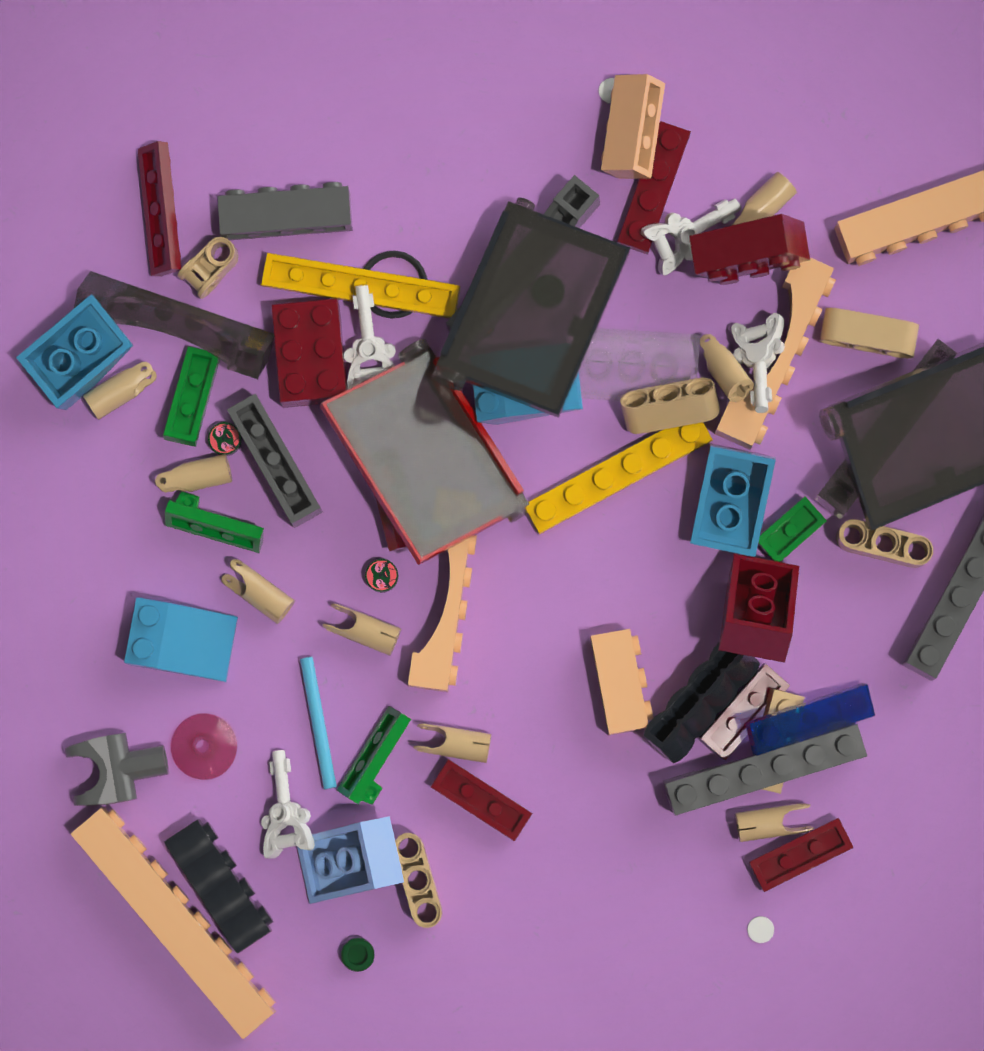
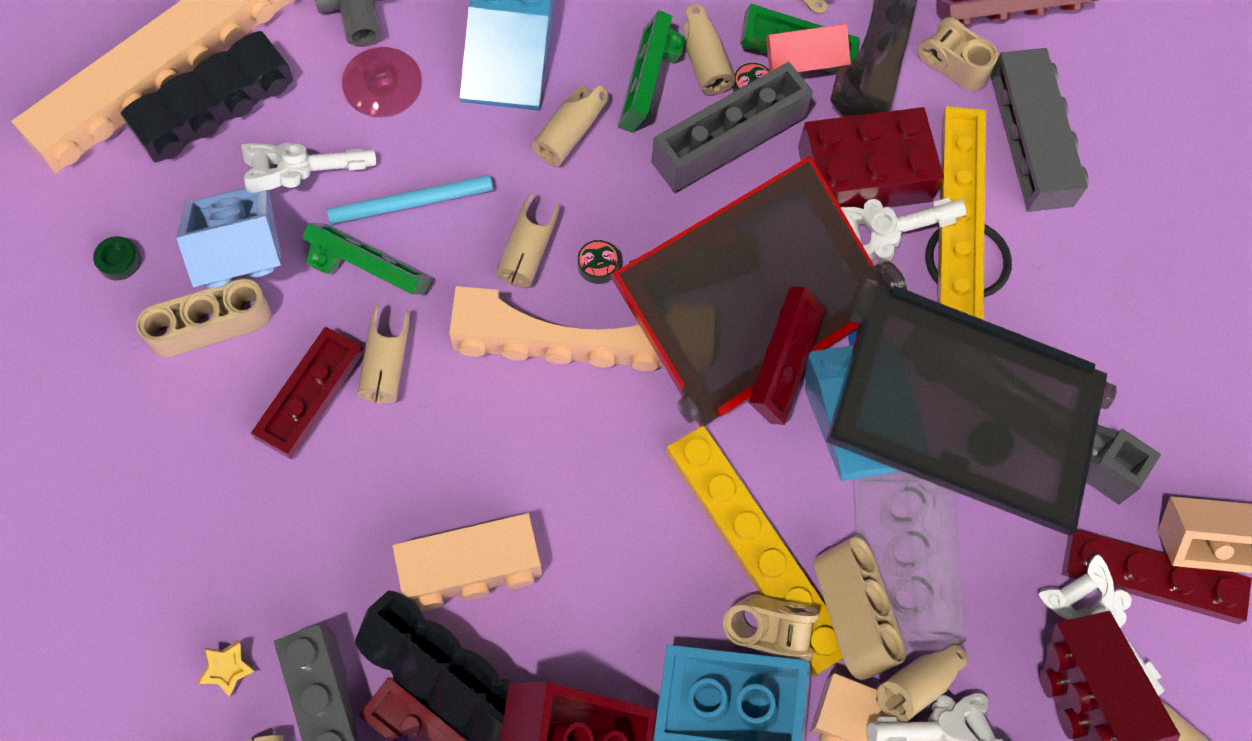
camera: 75 degrees right, 15 degrees down
(208, 391) = (809, 48): none -> coral tile
(483, 437) = (787, 355): none -> dark red plate
(680, 466) = (781, 626): none -> tan piece
(686, 855) = (224, 667): none -> yellow piece

